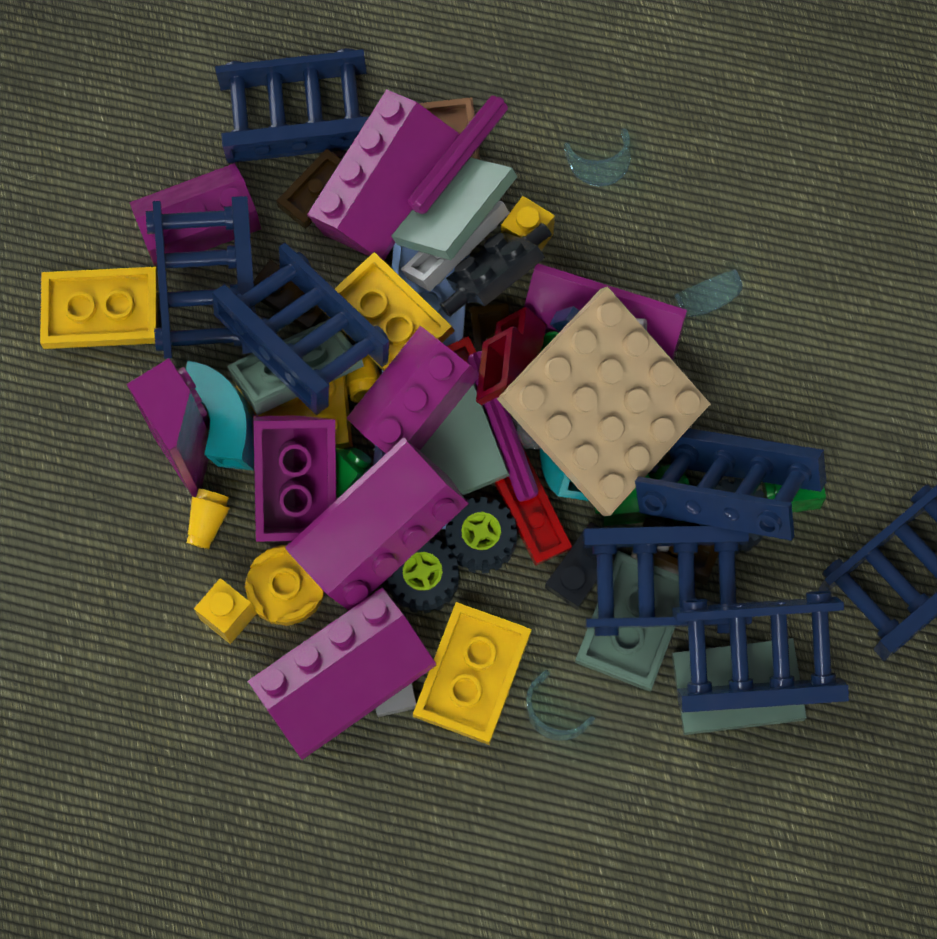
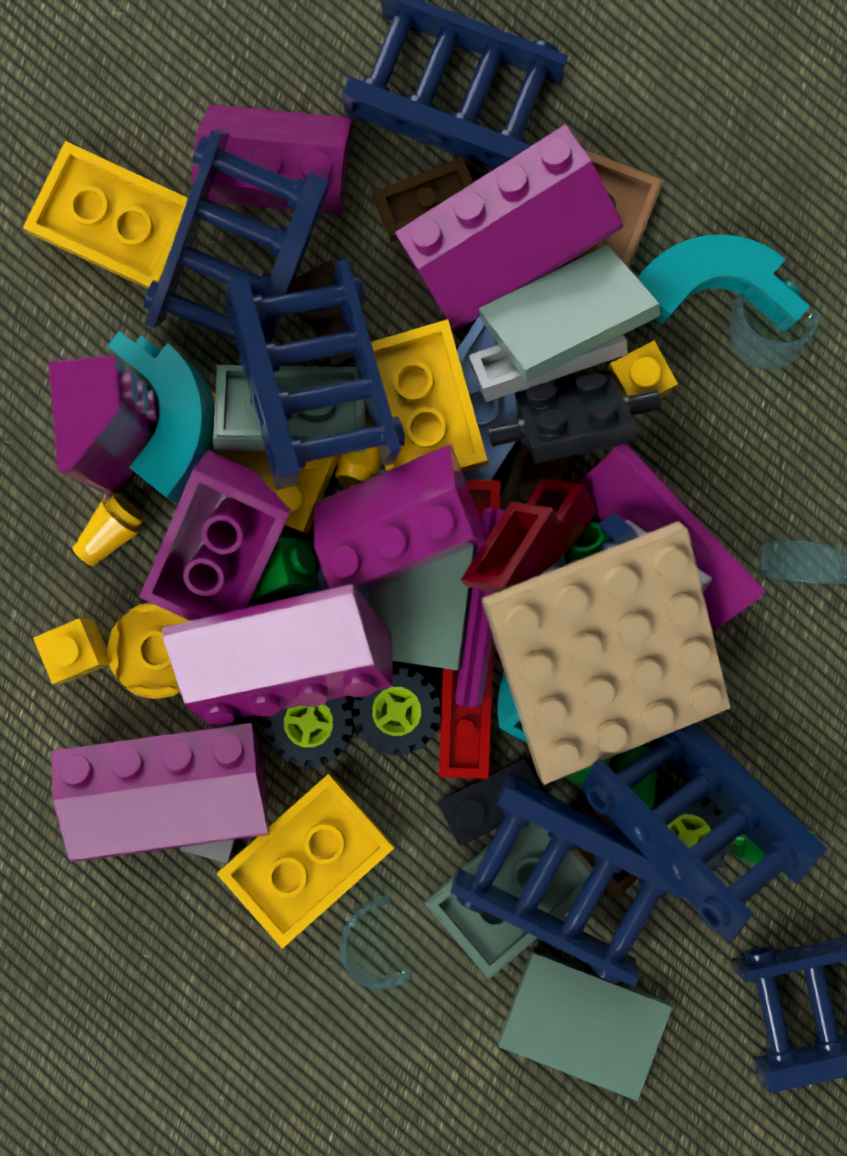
camera: 25 degrees right, 15 degrees up
(457, 155) = (607, 248): magenta axle -> none
(545, 129) = (724, 264): none -> teal arch
(782, 688) = (605, 1063): dark blue fence -> none

